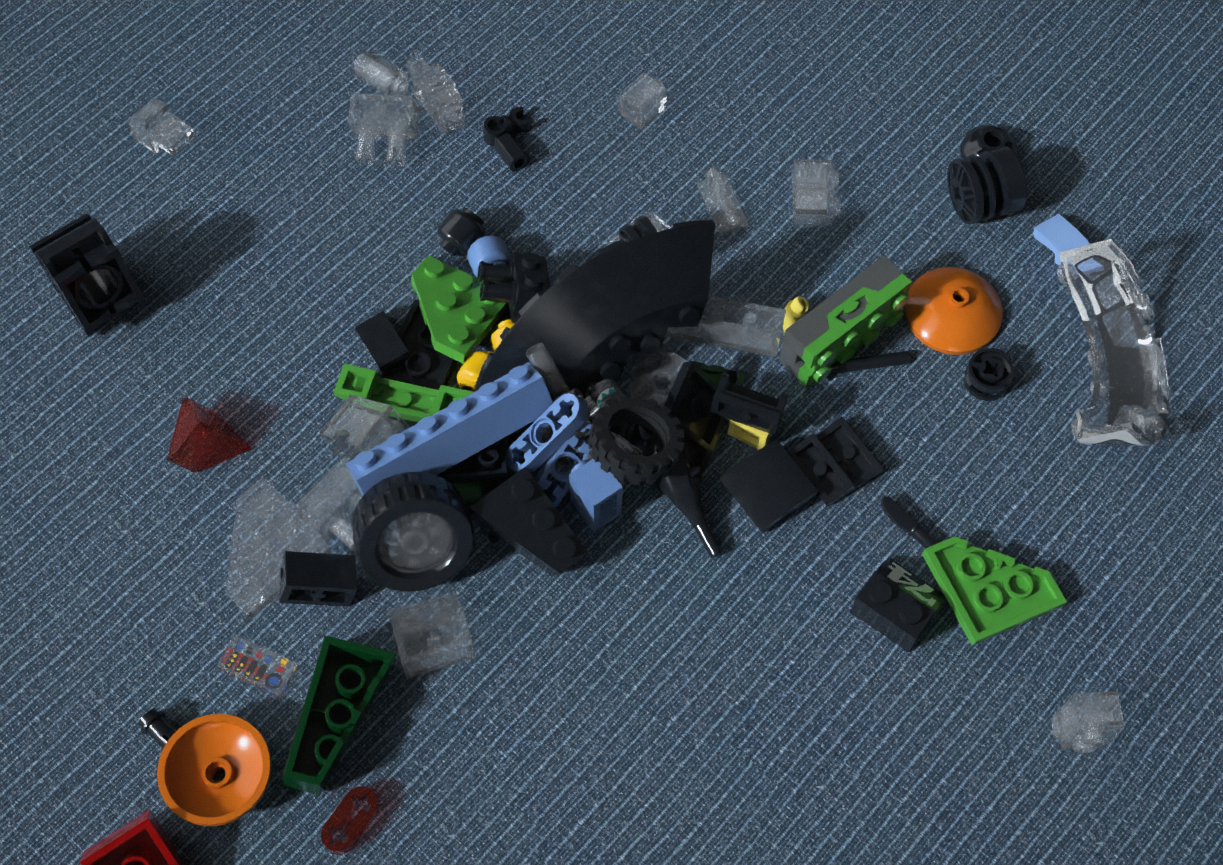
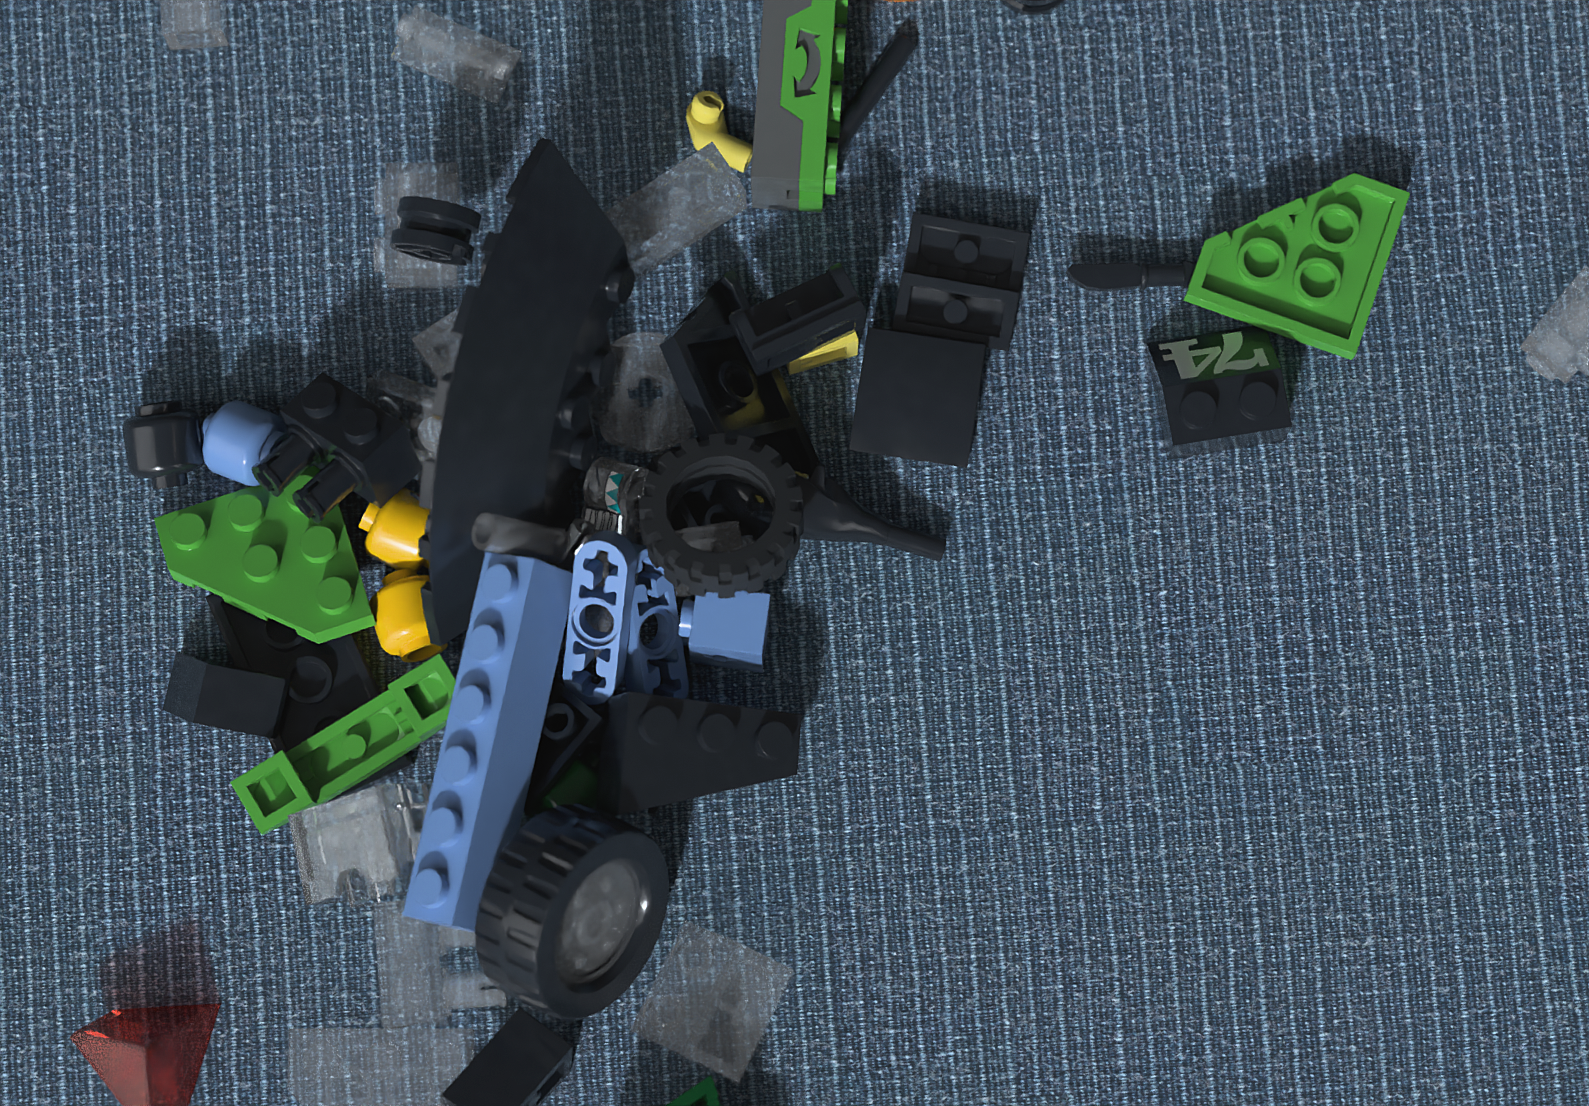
camera: 45 degrees left, 15 degrees up
(499, 132) = (45, 249): black bar -> none

